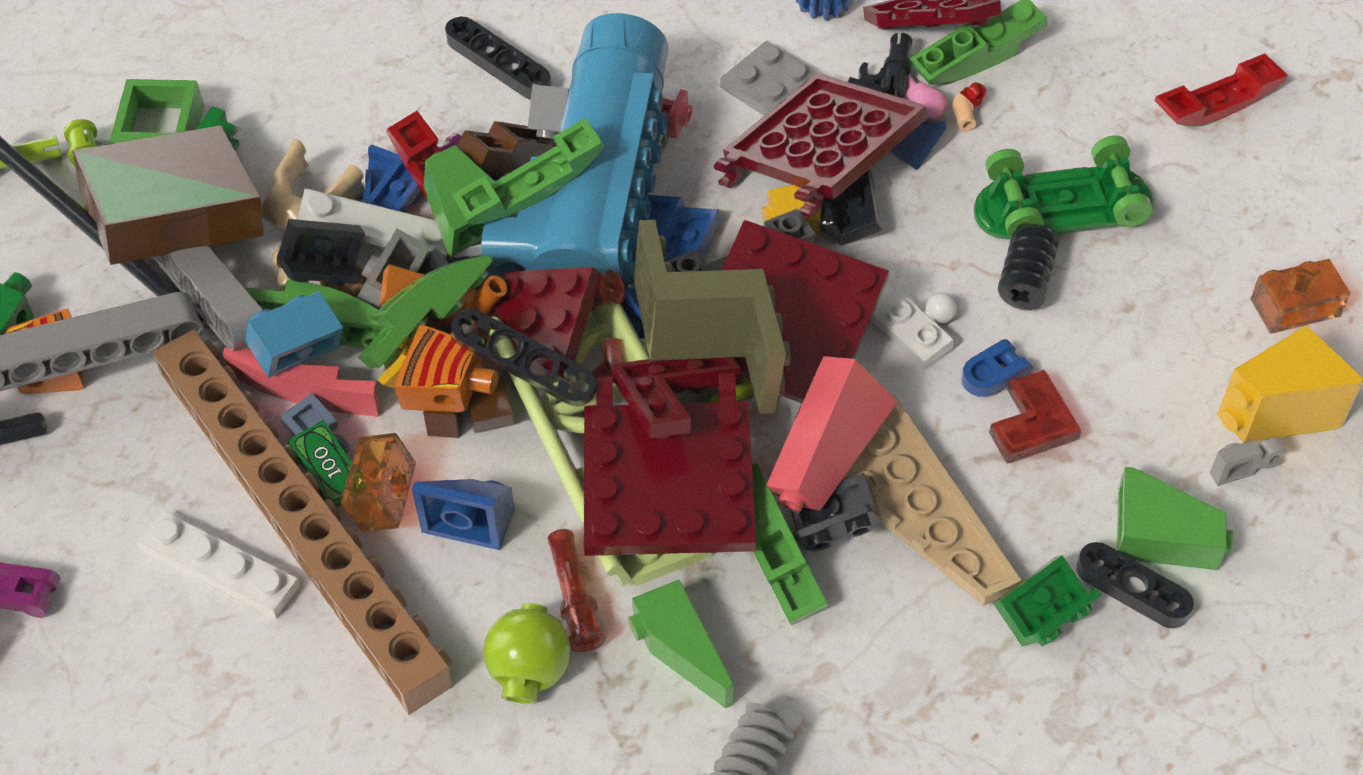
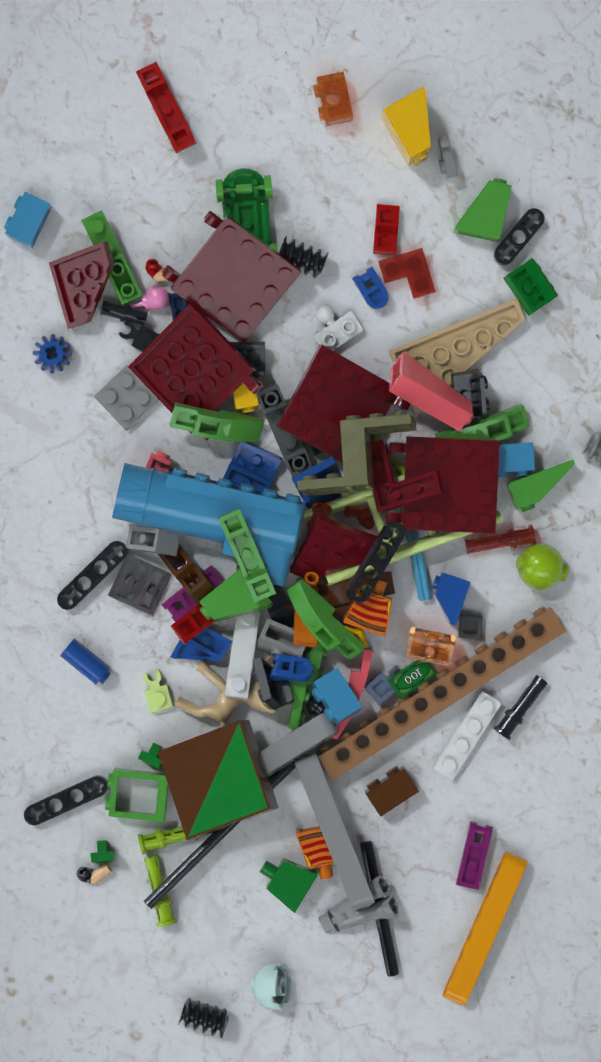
camera: 85 degrees left, 35 degrees up
(40, 83) = (93, 876): none -> arm
(72, 88) = (103, 854): none -> green tile
(128, 447) = (391, 790): none -> reddish brown brick
(156, 49) = (67, 803): none -> black beam
(248, 632) = (514, 716): none -> black pin
(319, 140) = (158, 696): none -> yellowish green plate
(343, 275) = (299, 670): none -> blue plate
(365, 52) = (86, 662): none -> blue brick
(415, 556) = (470, 626): none -> dark grey tile
(481, 100) = (139, 584): none -> flat silver slope
(521, 469) = (420, 572): none -> medium azure axle
(726, 595) = (516, 458): none -> dark azure brick
(737, 166) = (216, 425): none -> bright green slope
(978, 167) = (234, 277): none -> plate
(1108, 386) = (386, 229): none -> red slope

